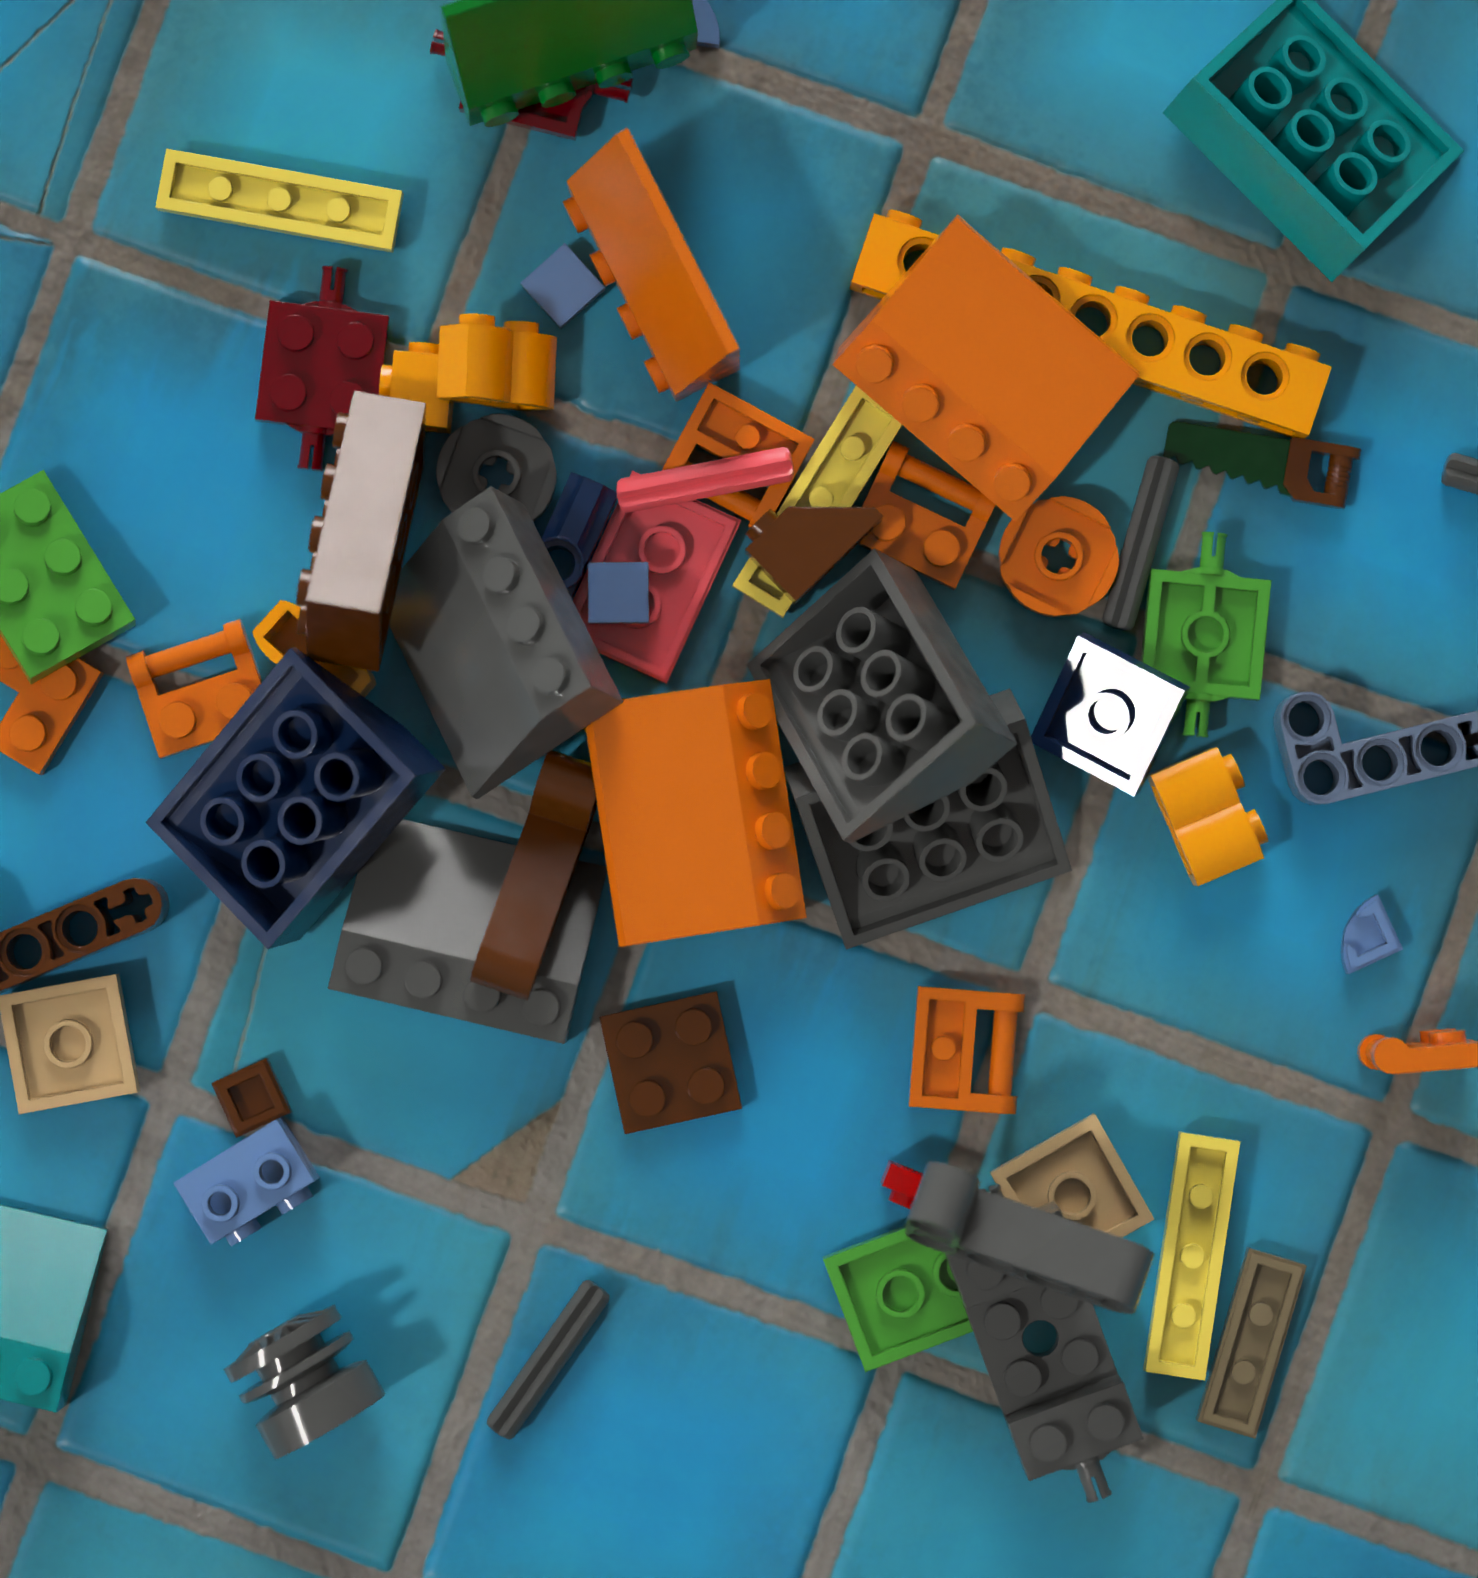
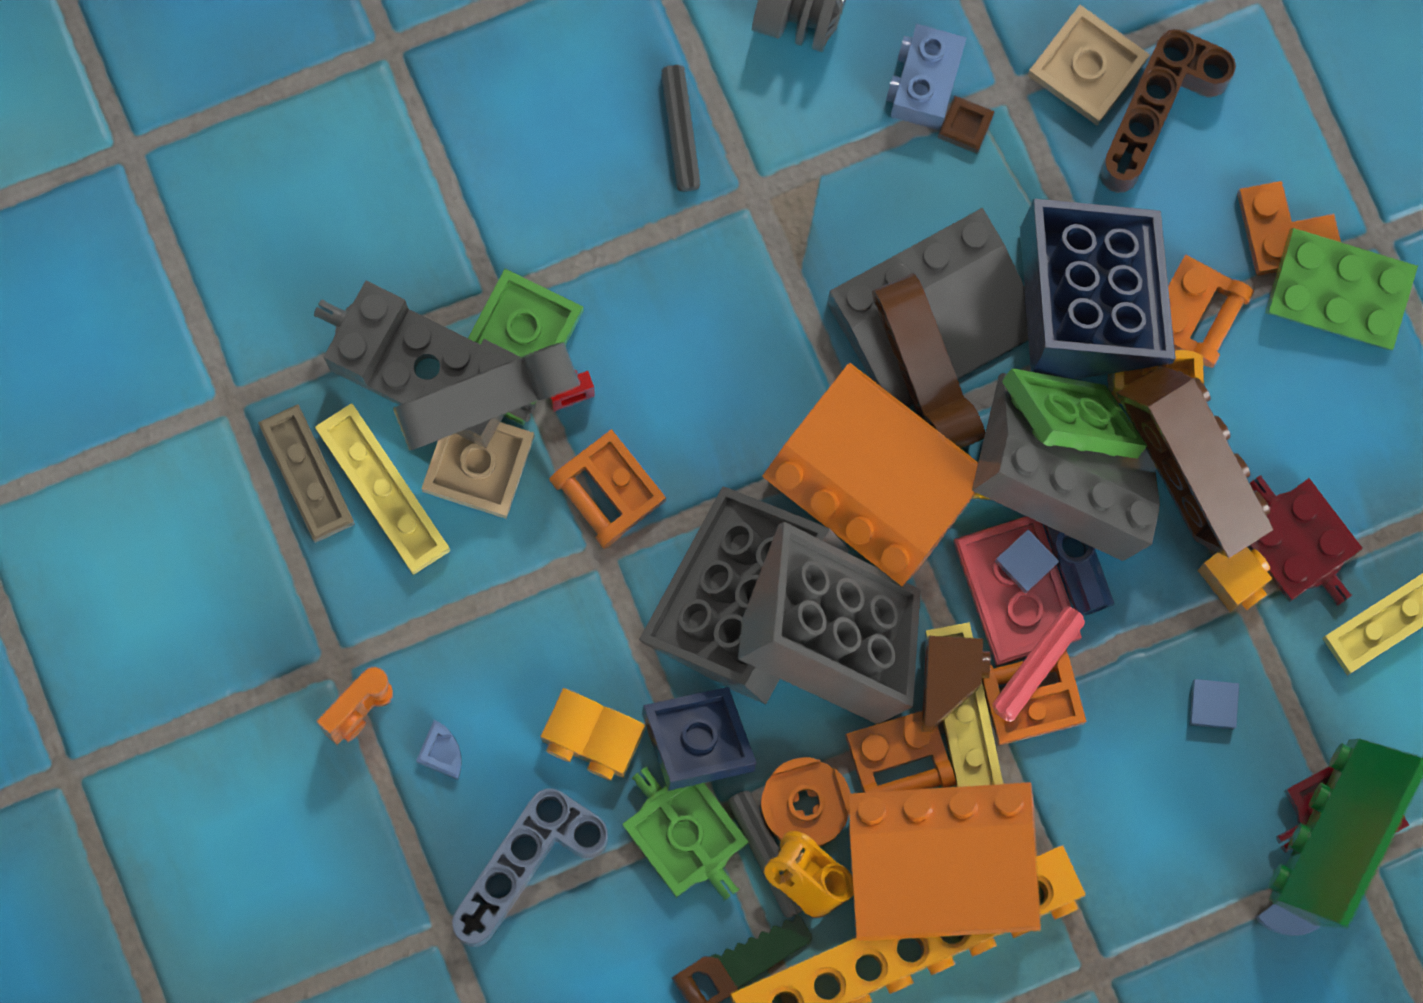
camera: 130 degrees right, 10 degrees down
(444, 687) = (1073, 414): none -> bright green plate
(481, 444) = (1175, 580): dark grey plate -> none
(496, 365) = (1208, 621): light orange brick -> none
(652, 269) = (1174, 752): orange slope -> none
(670, 1062) = (761, 341): reddish brown plate -> none
(1125, 490) = (809, 877): none -> light orange piece

